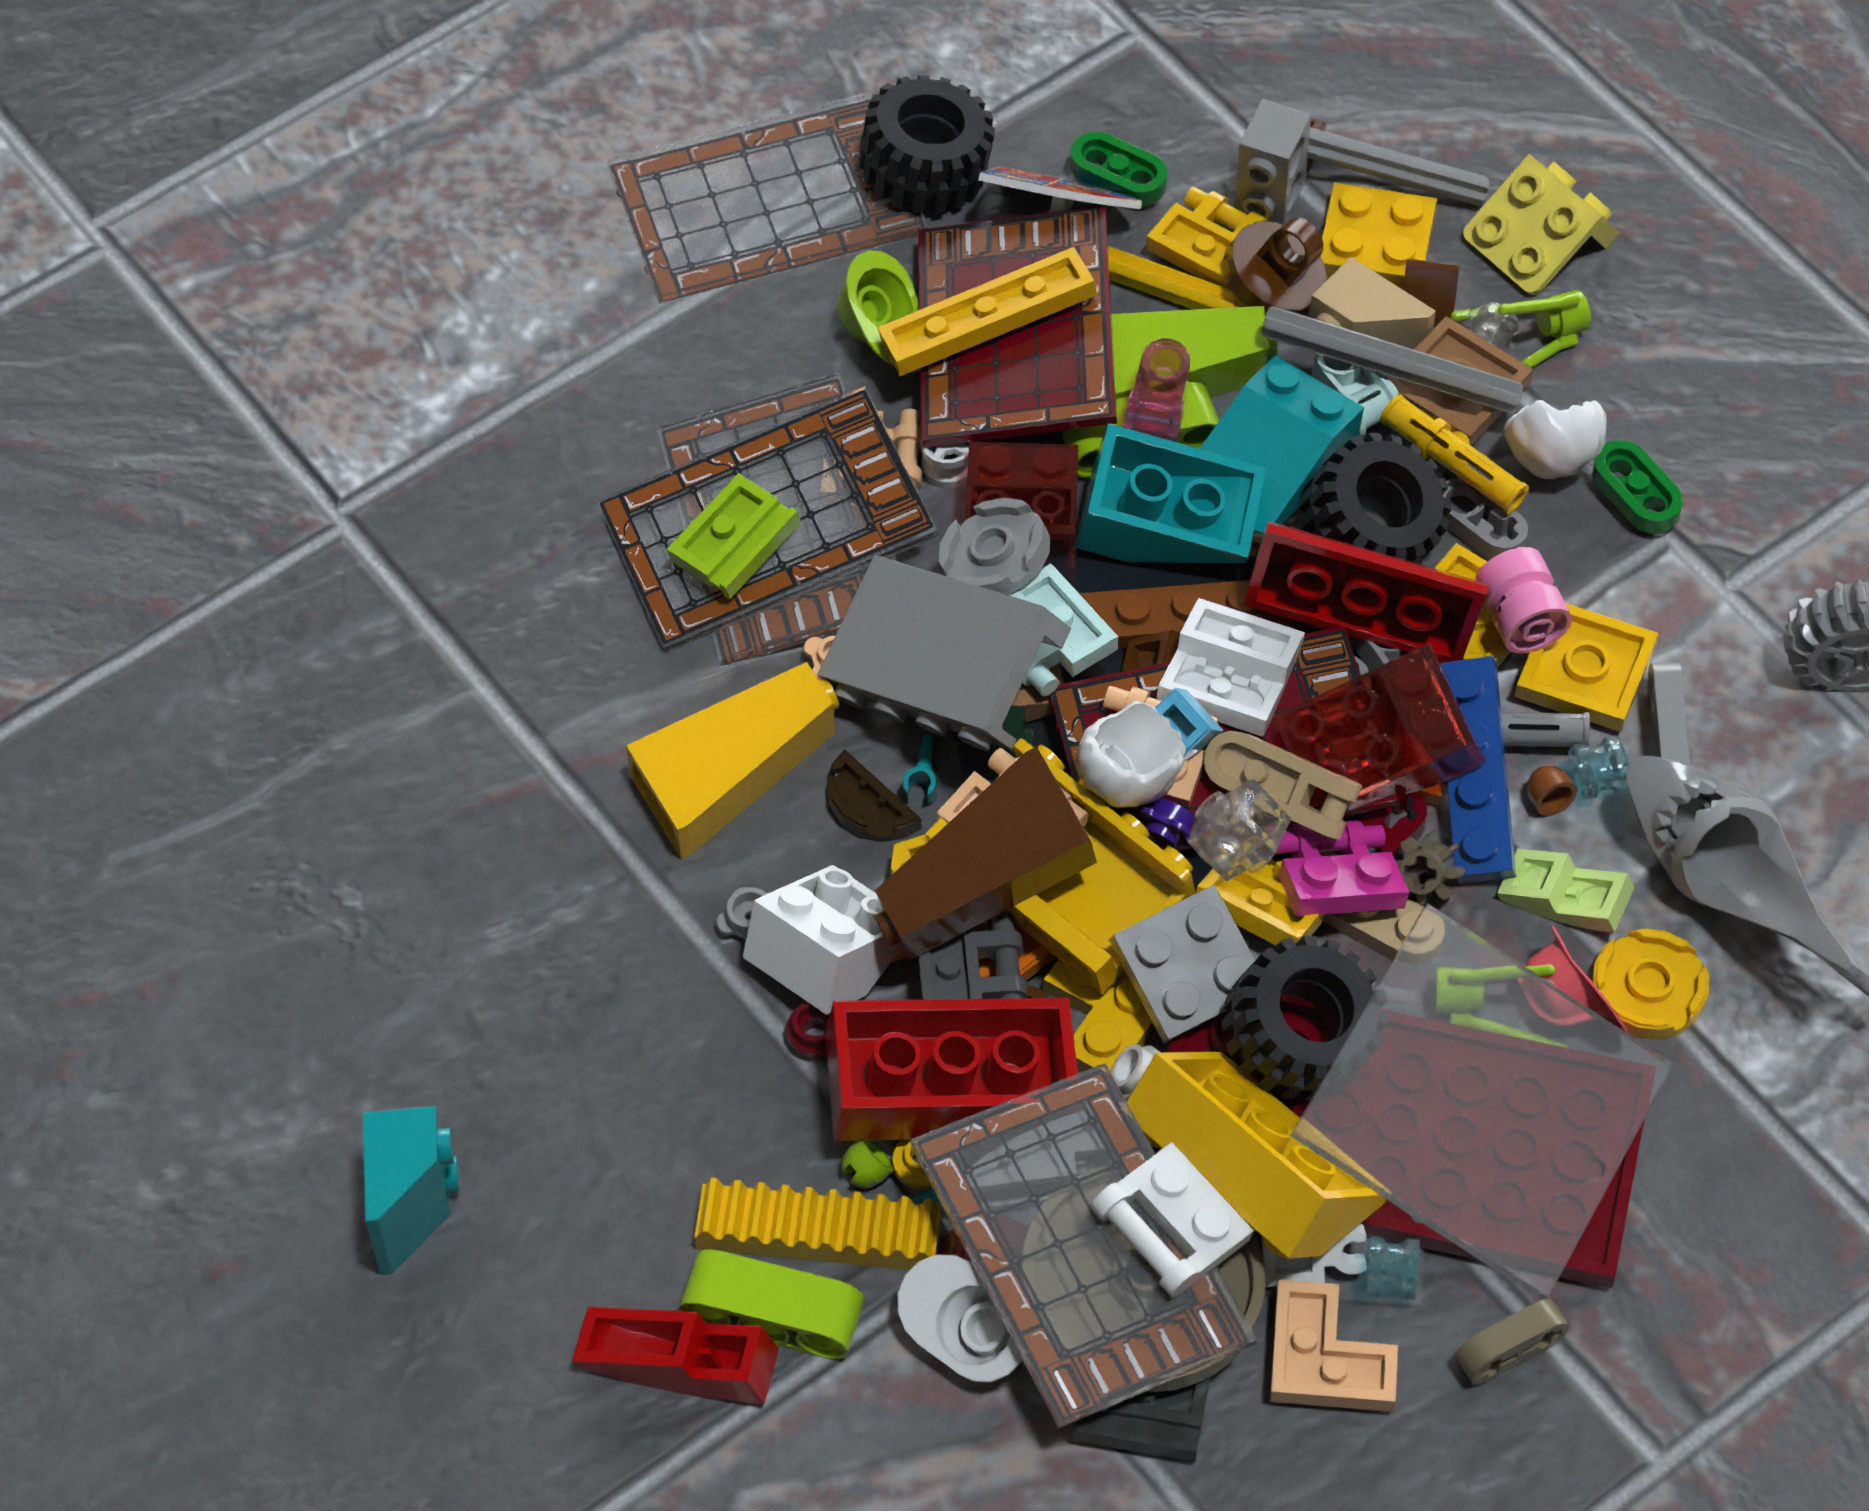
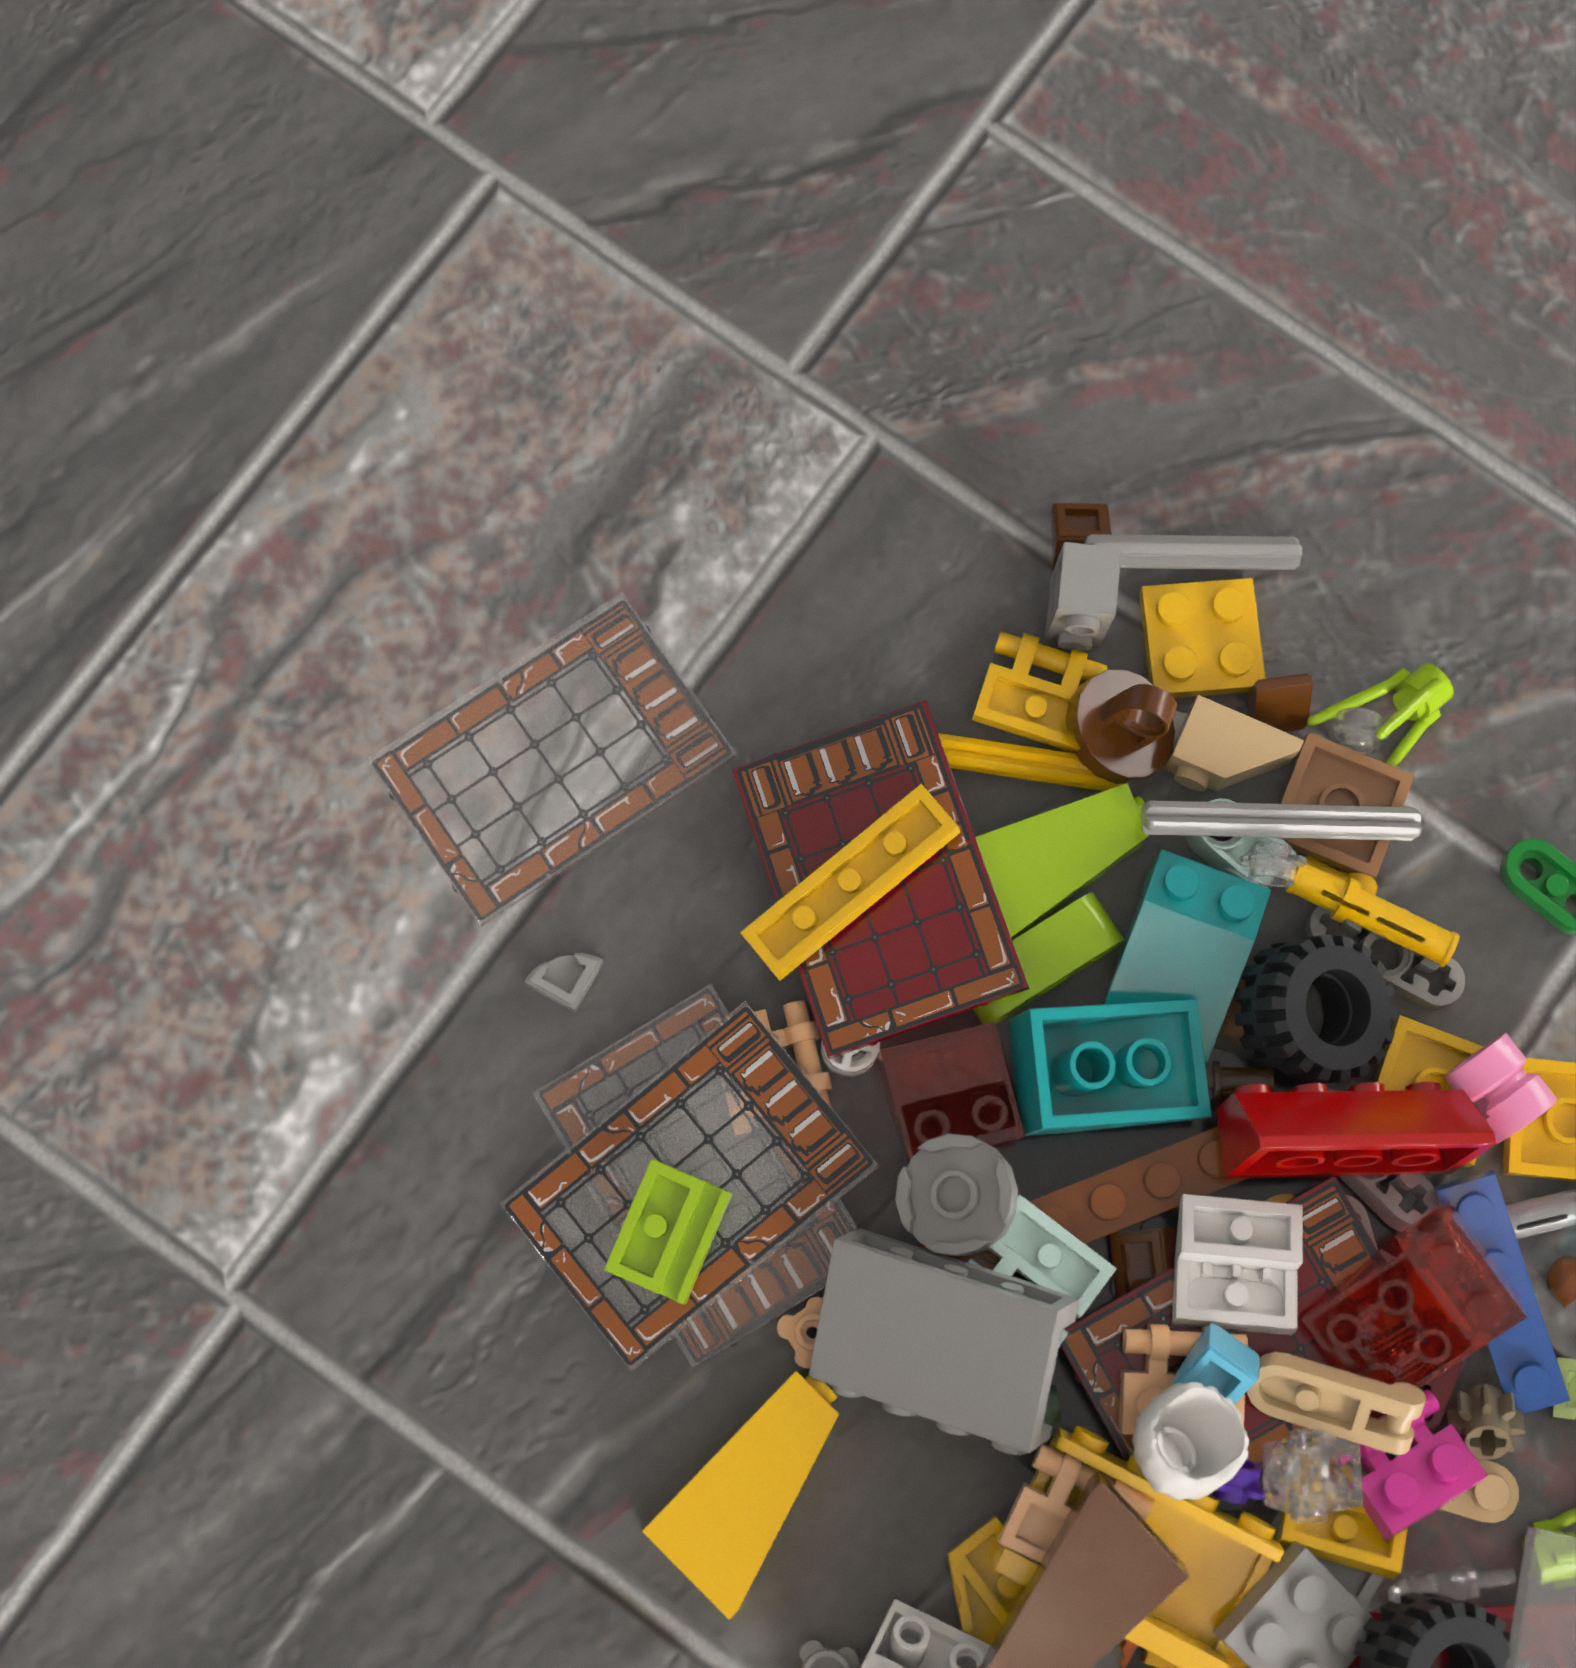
camera: 25 degrees left, 20 degrees up
(717, 354) = (565, 978): none -> light grey tile
(866, 805) = (895, 1497): dark brown tile -> none
(874, 295) = (725, 886): lime piece -> none
(922, 772) = (943, 1448): teal hand -> none
(926, 144) = (716, 622): black tyre -> none
(1061, 190) = (861, 682): shield -> none
(1122, 167) = (915, 624): green plate -> none
(1157, 400) = (1062, 948): clear pink piece -> none
(1370, 383) = (1272, 865): none -> clear plate
(1537, 224) = (1366, 586): light yellow bracket -> none
(1556, 441) = (1466, 858): white hair -> none

